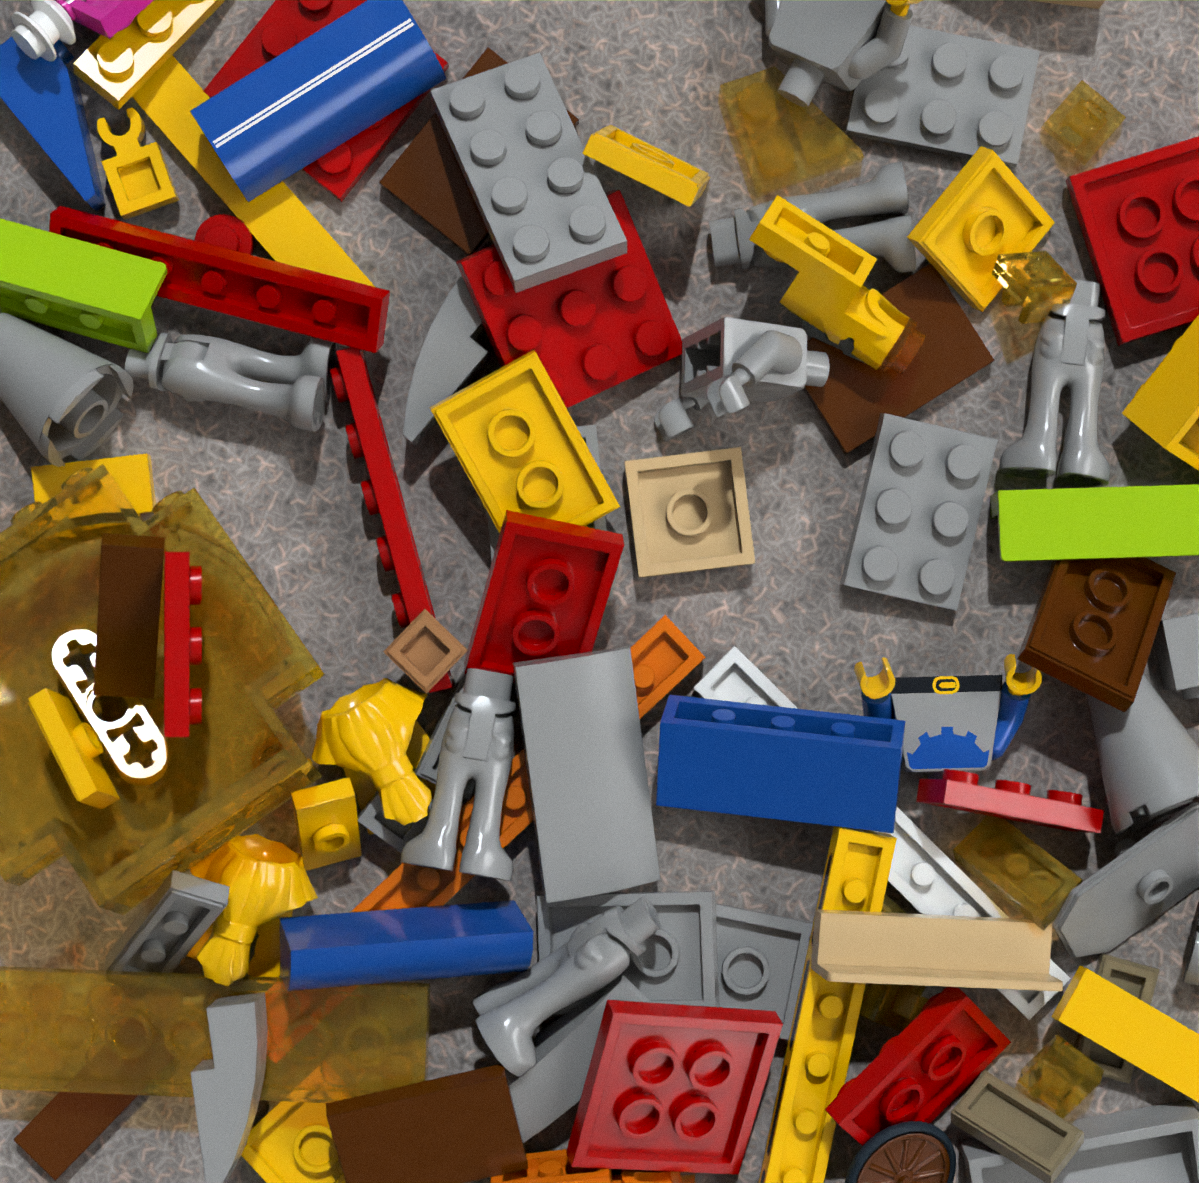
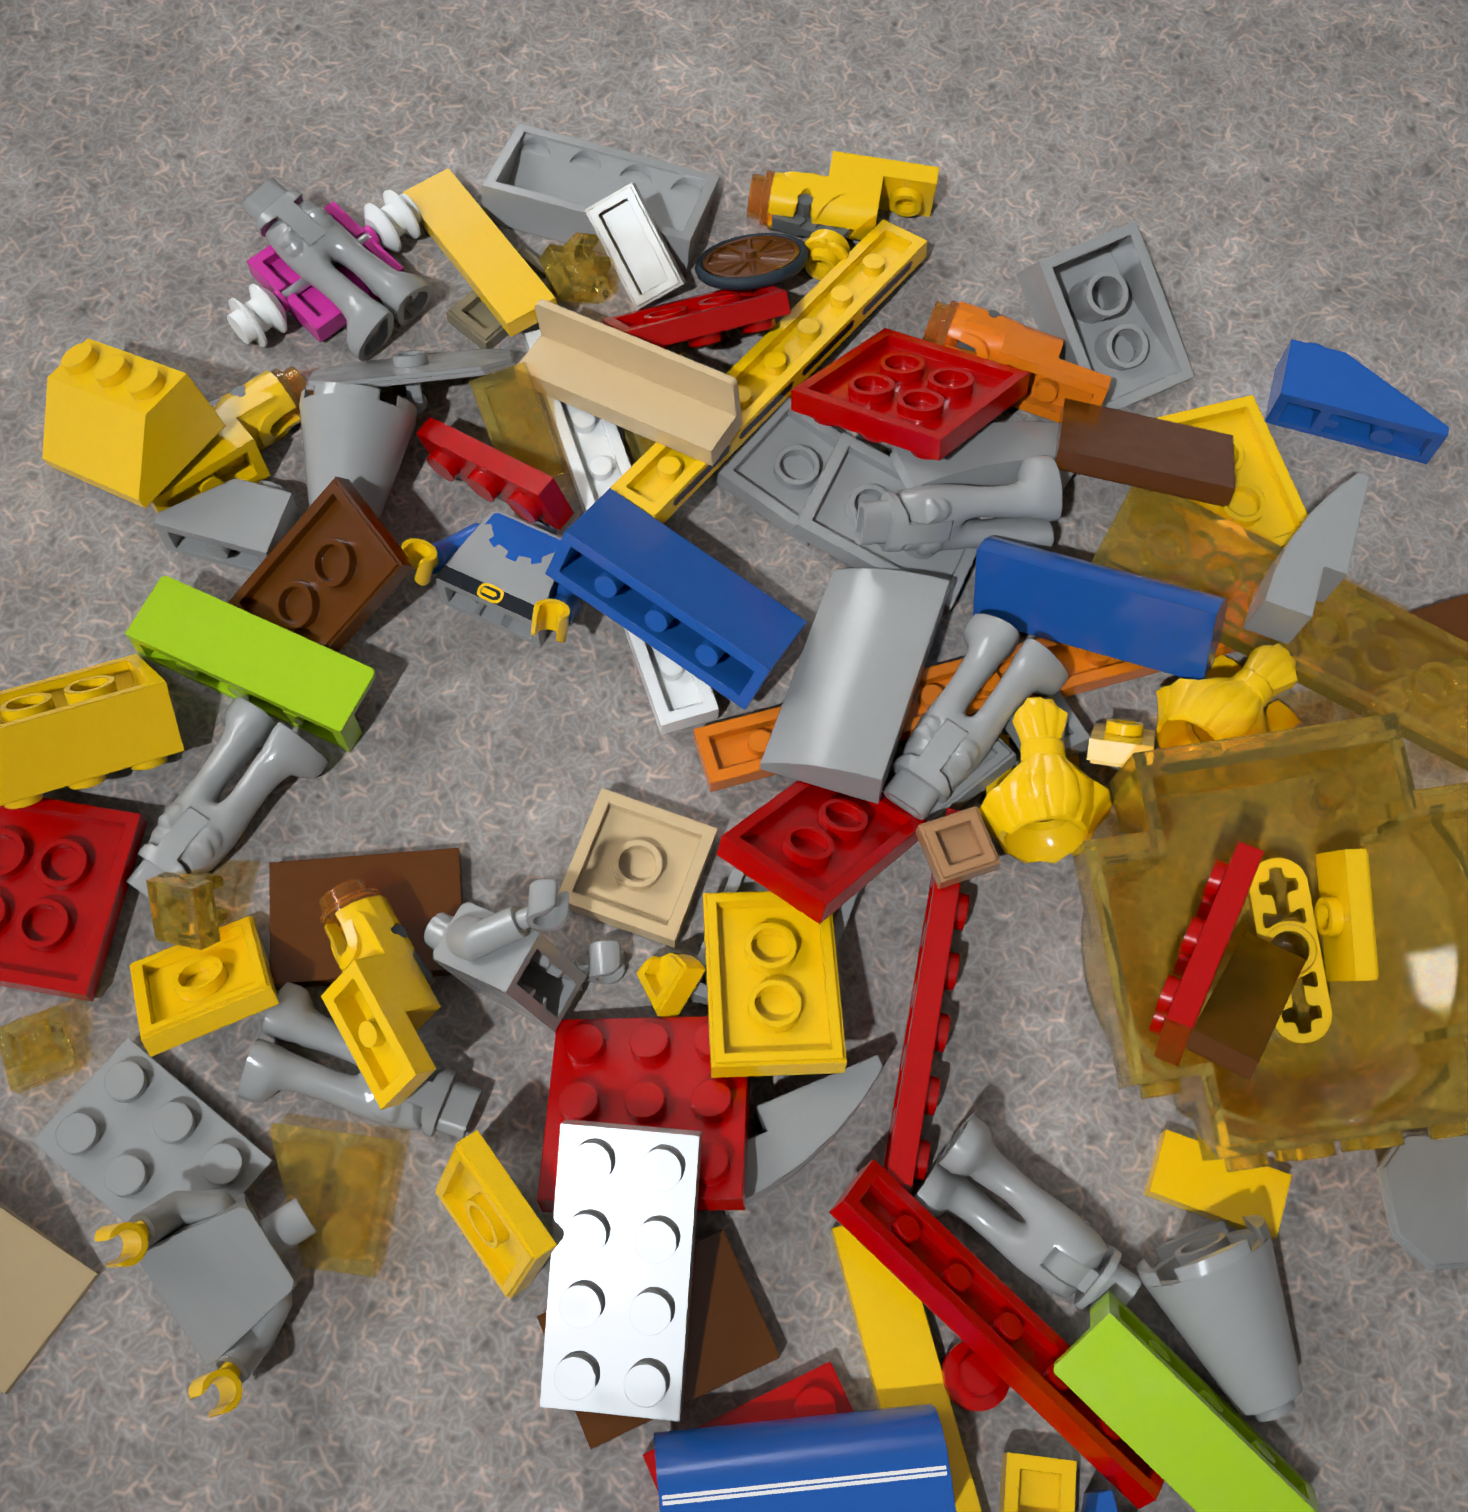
camera: 155 degrees left, 20 degrees down
(168, 925) = (1297, 710): light grey tile -> none
(611, 424) = (670, 981): none -> yellow tile
(918, 511) = (423, 764): light grey plate -> none

